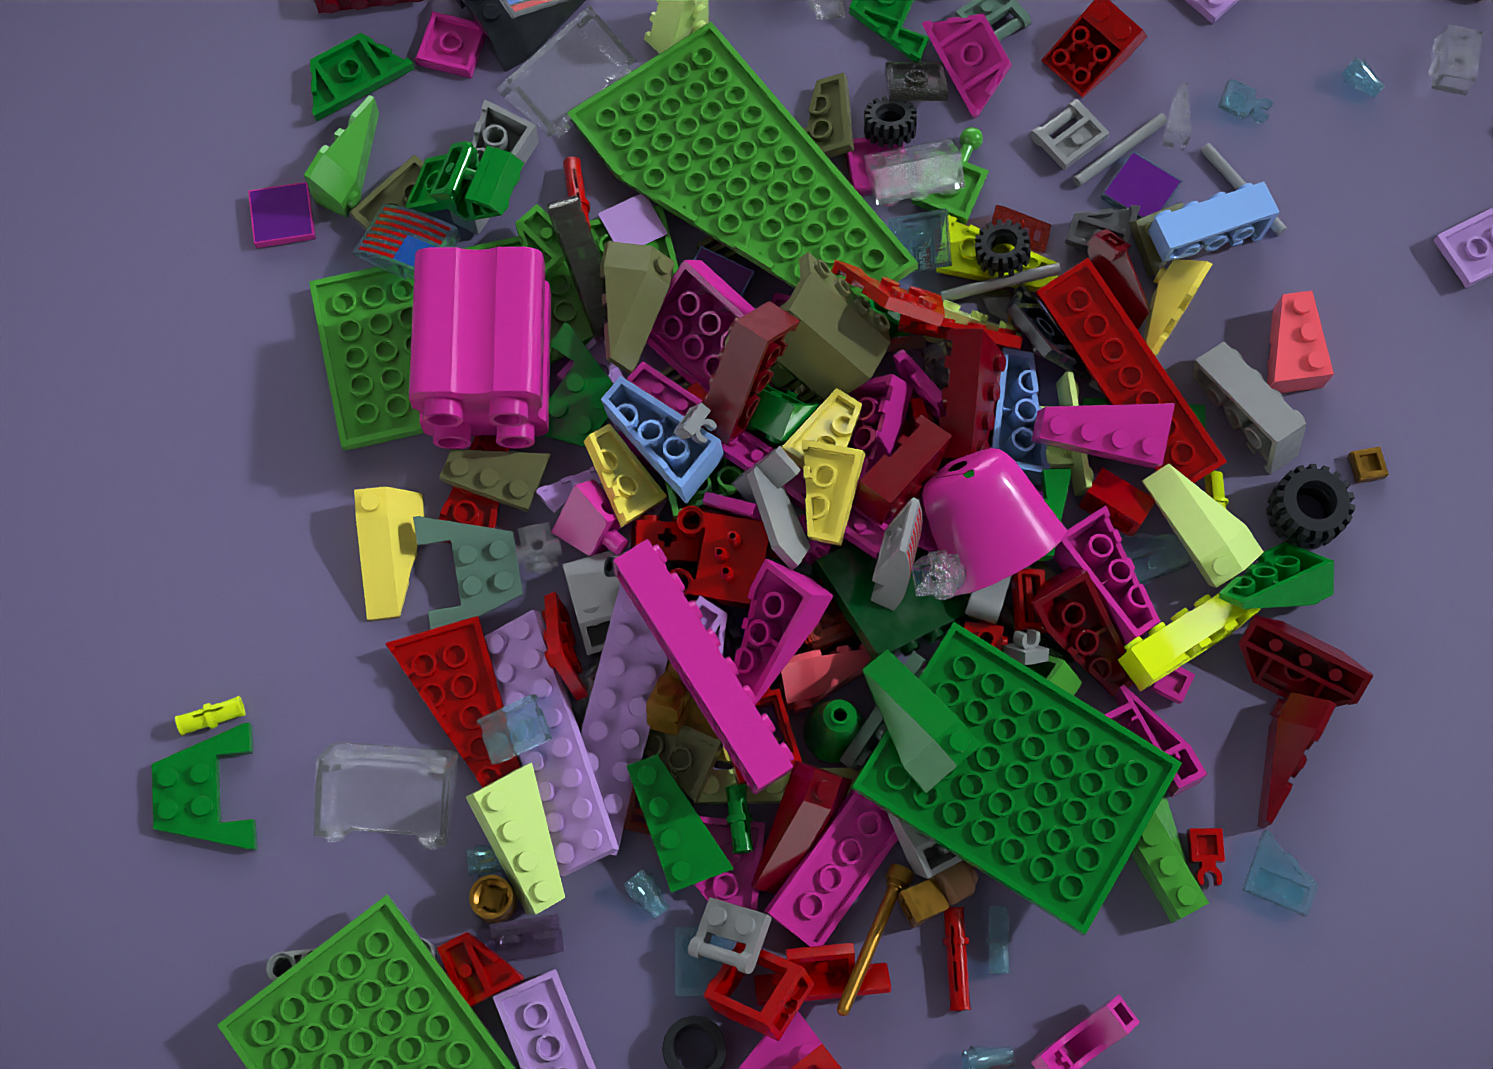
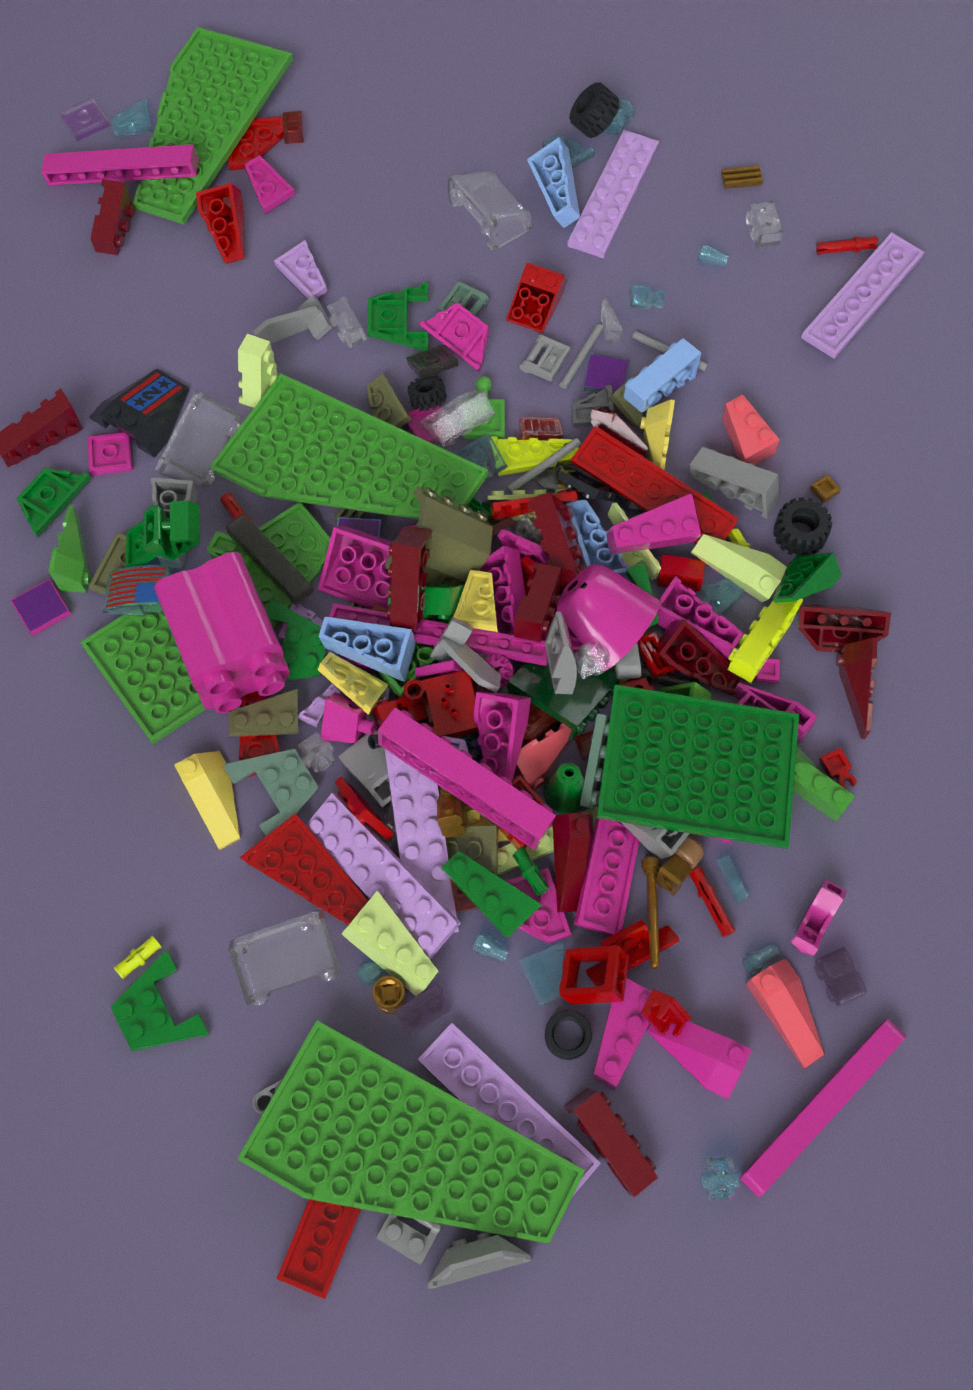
camera: 20 degrees left, 5 degrees down
(476, 968) = (398, 1045): red wing -> none
(514, 729) = (354, 875): clear light blue plate -> none
(633, 221) = (285, 520): lavender sticker -> none
(635, 290) = (310, 561): olive wedge -> none
(692, 422) = (389, 623): light grey tile -> none
(732, 924) = (558, 940): light grey plate -> none
(831, 484) = (497, 630): light yellow wing -> none
(887, 293) = (482, 493): red wing -> none
(923, 728) = (626, 757): green wedge -> none
(1007, 261) = (535, 433): black tyre -> none
(1026, 648) = (666, 683): light grey tile -> none
(1279, 878) = (889, 764): clear light blue wing -> none

